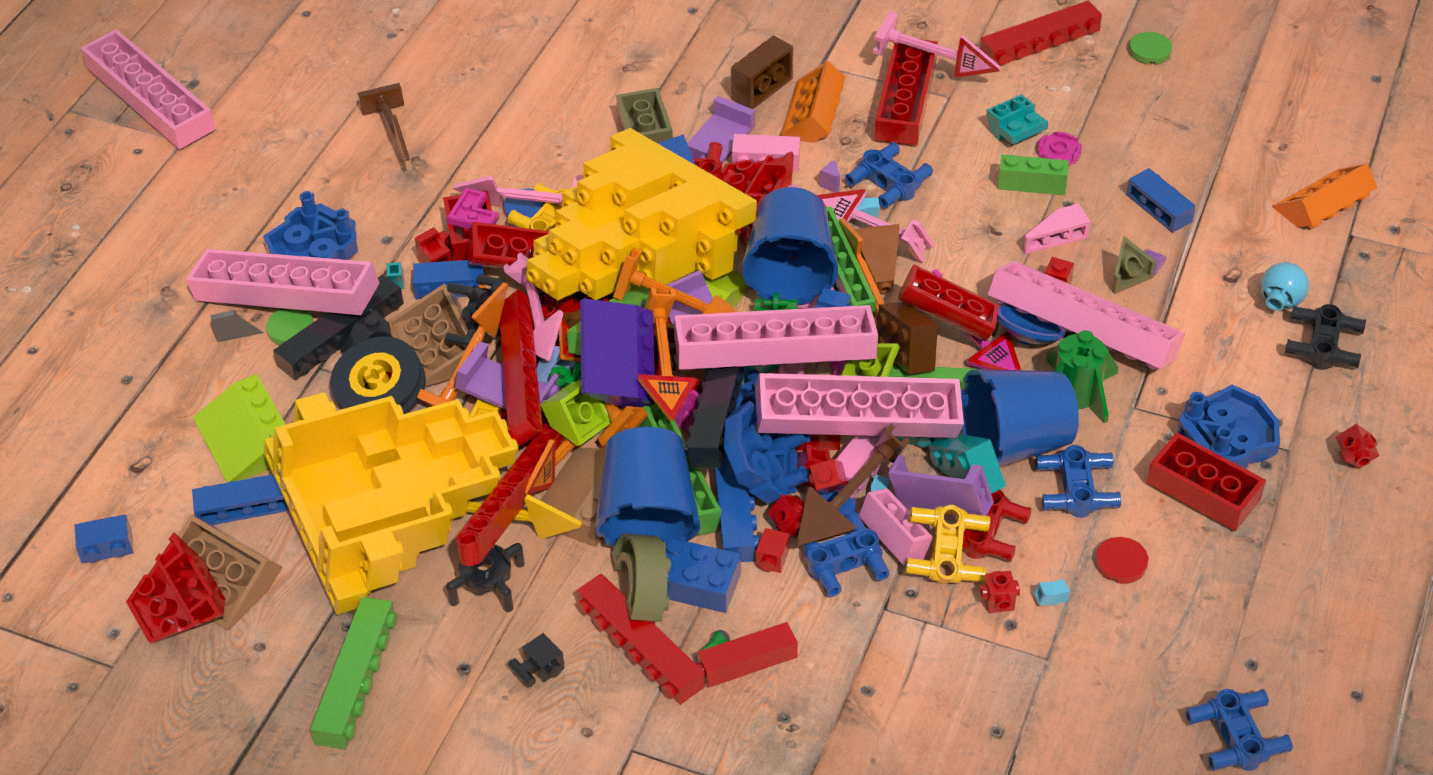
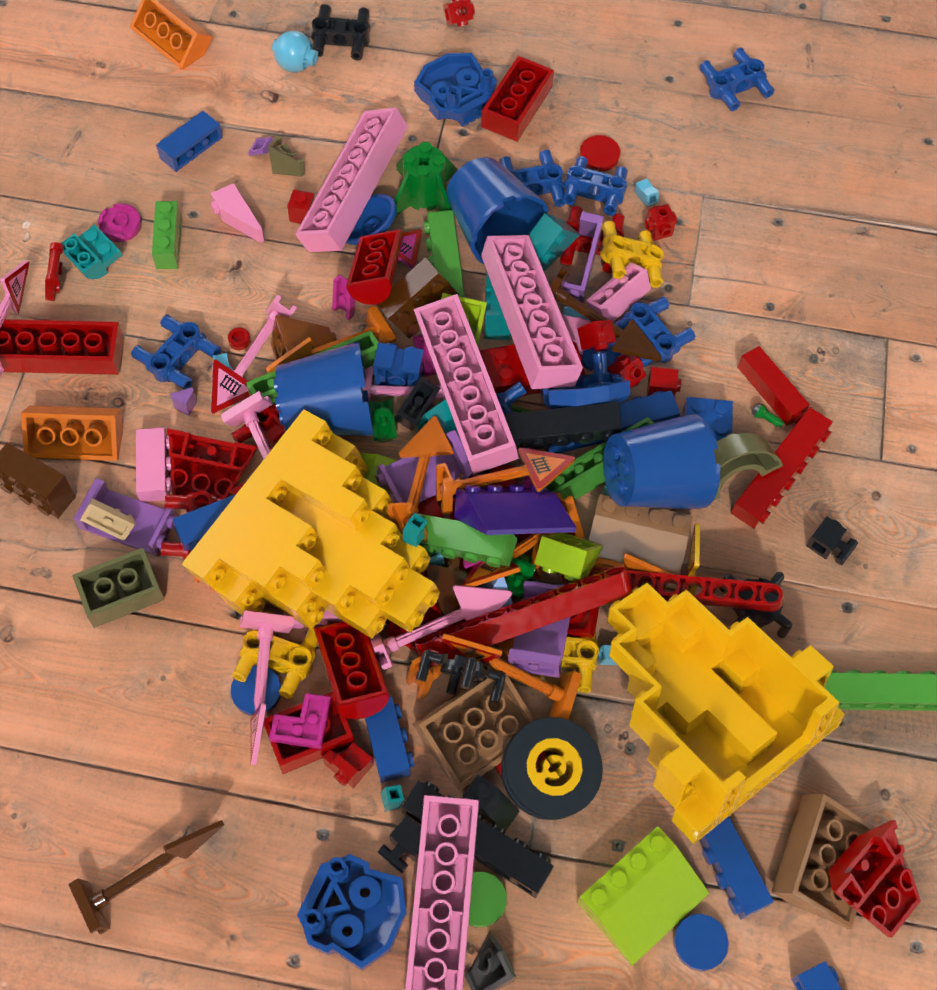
camera: 105 degrees left, 15 degrees up
(189, 467) = (701, 942): none -> blue tile
(611, 268) = (414, 530): none -> teal piece
(713, 109) = (107, 519): none -> tan plate
(901, 219) = (239, 338): none -> red tile
(991, 93) = (55, 268): none -> red plate
(1062, 537) = (595, 185): none -> blue piece

